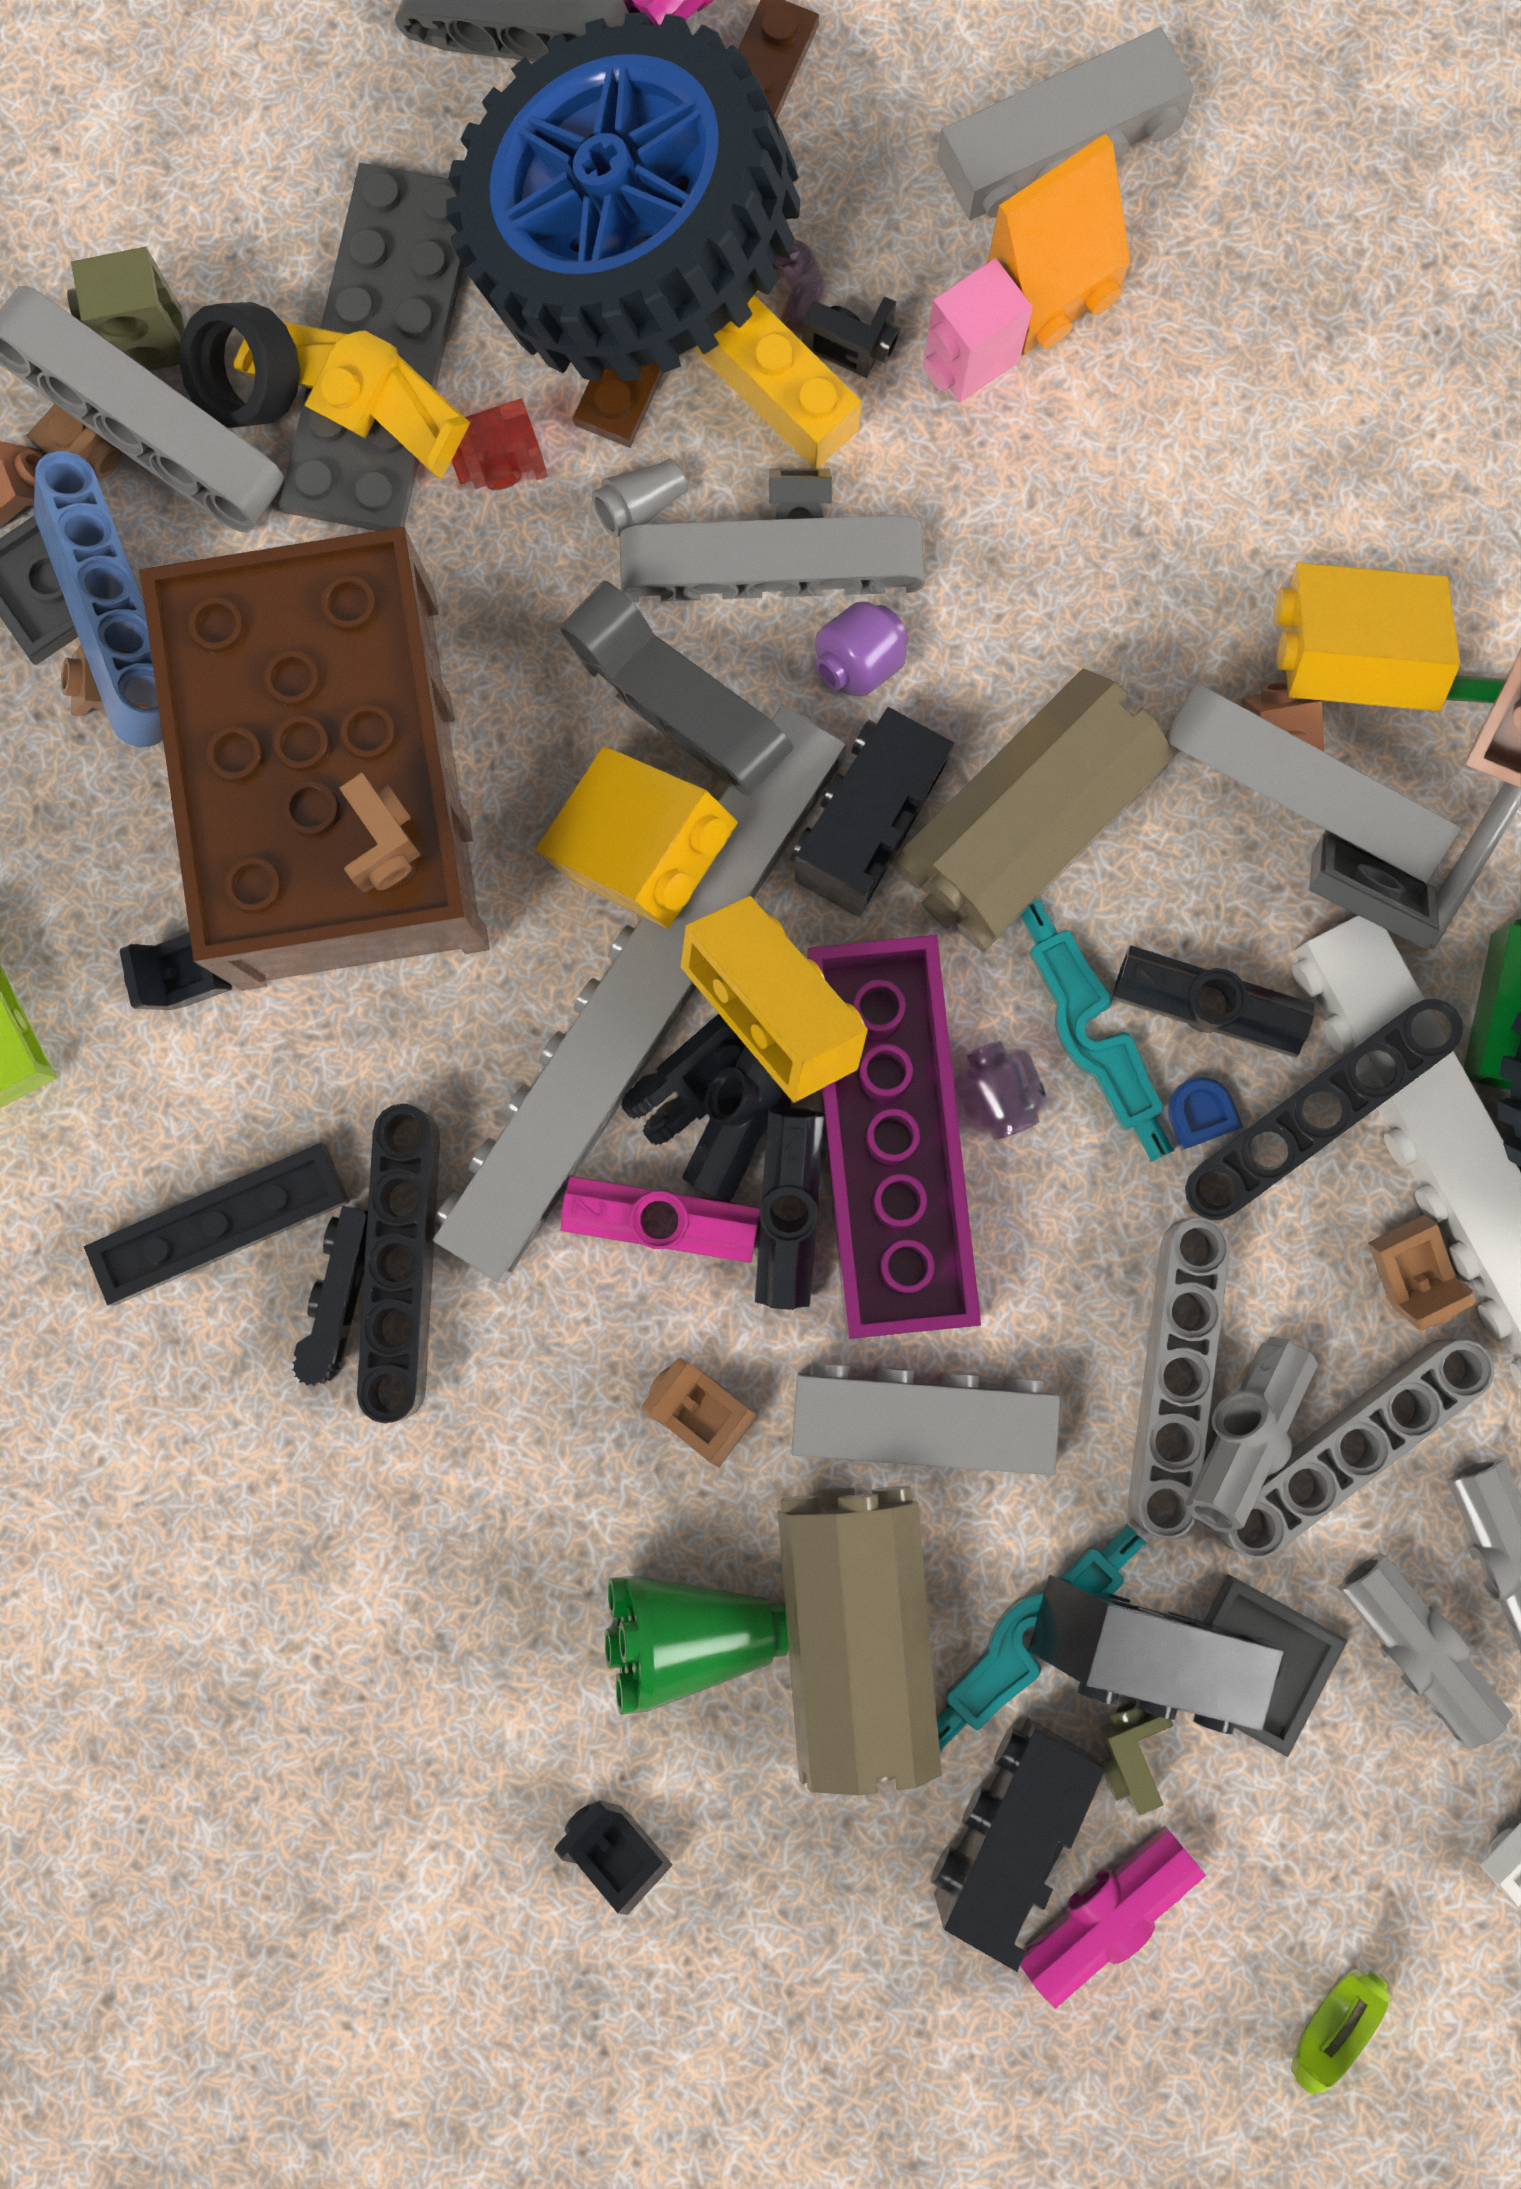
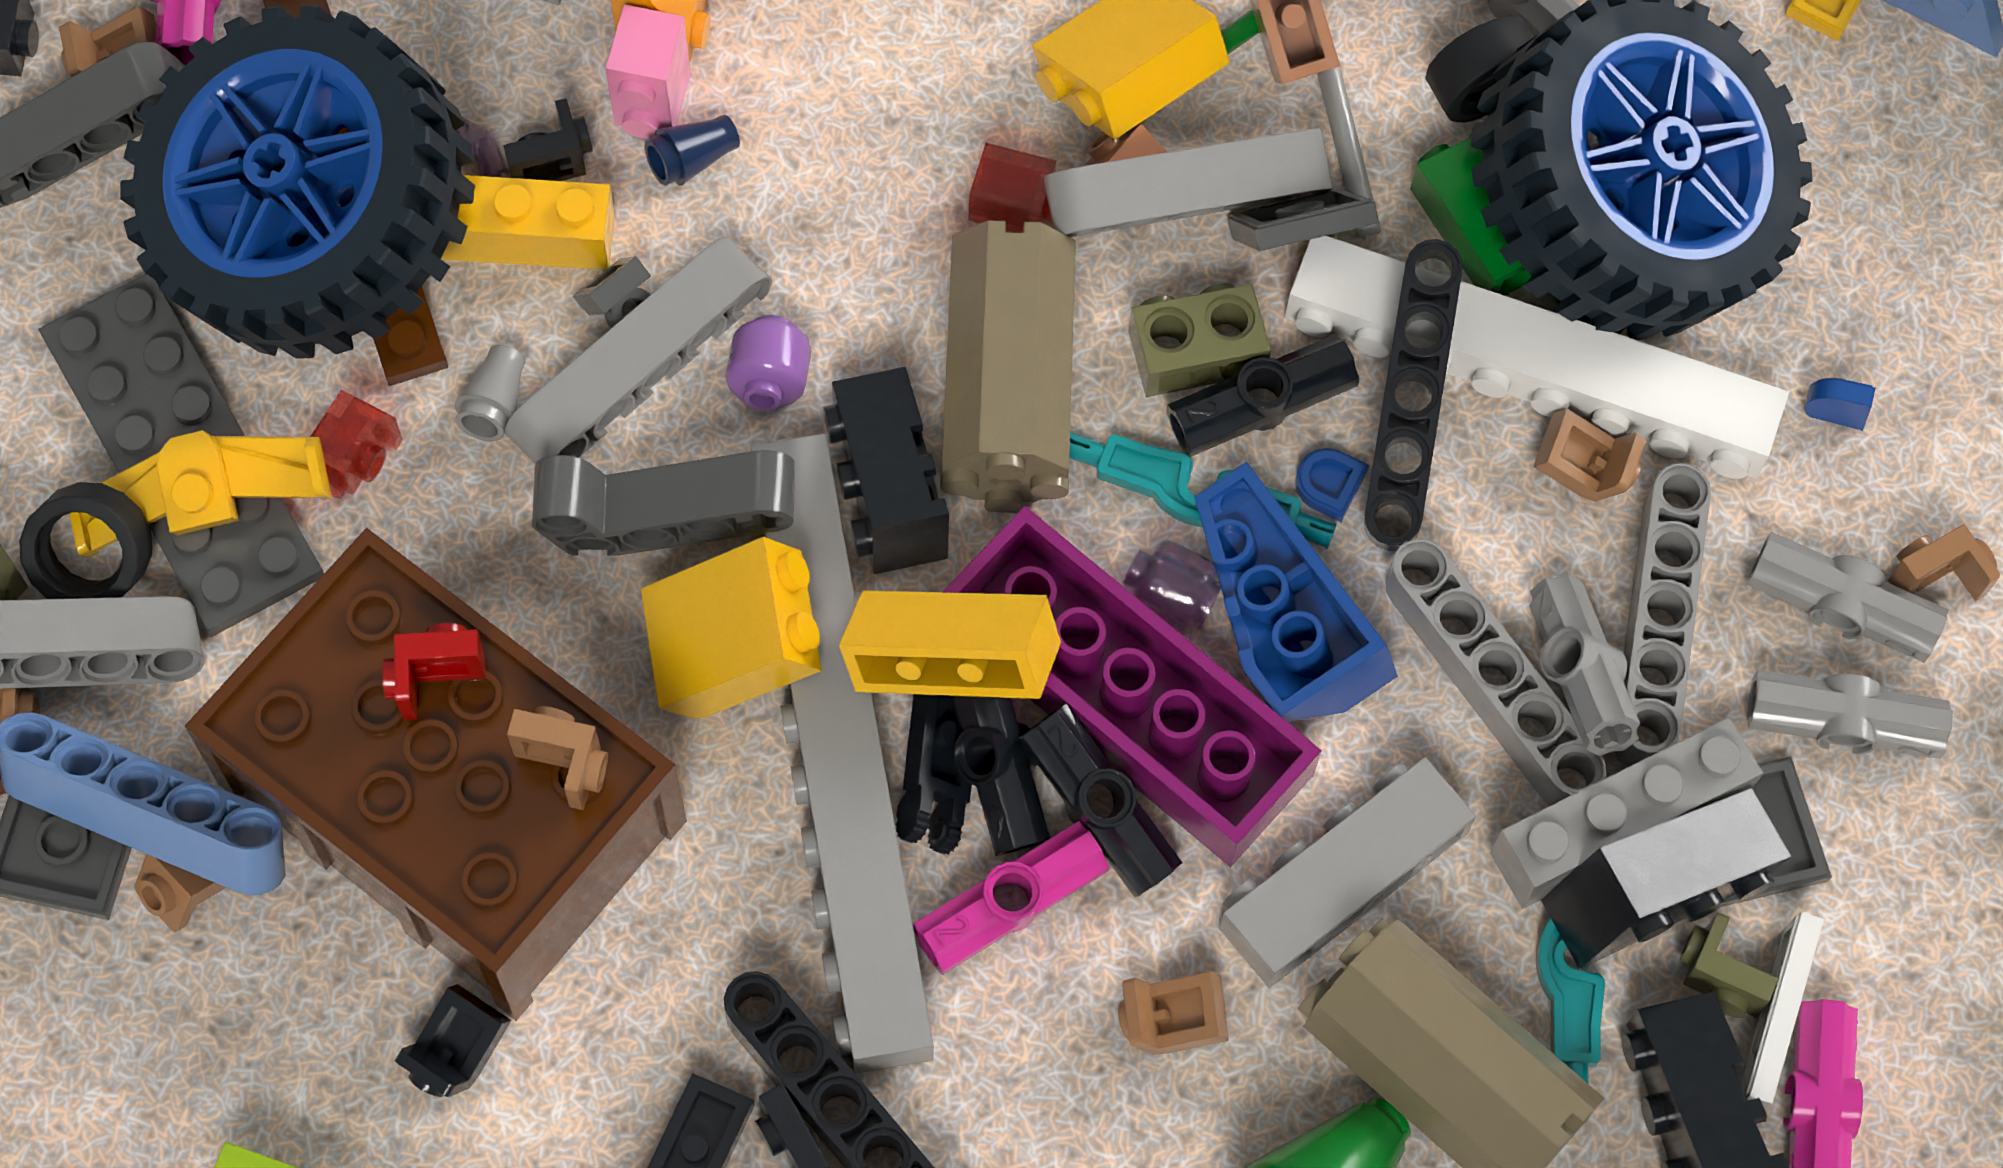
camera: 50 degrees left, 15 degrees down
(360, 677) = (439, 654): none -> red bracket
(958, 423) = (689, 148): none -> dark blue cone
(1062, 1200) = (1290, 616): none -> blue wedge
(1128, 1833) = (1780, 1014): none -> white tile
(1170, 664) = (1010, 188): none -> clear red brick
(1173, 1578) = (1673, 782): none -> light grey brick
(1198, 929) = (1203, 353): none -> olive brick

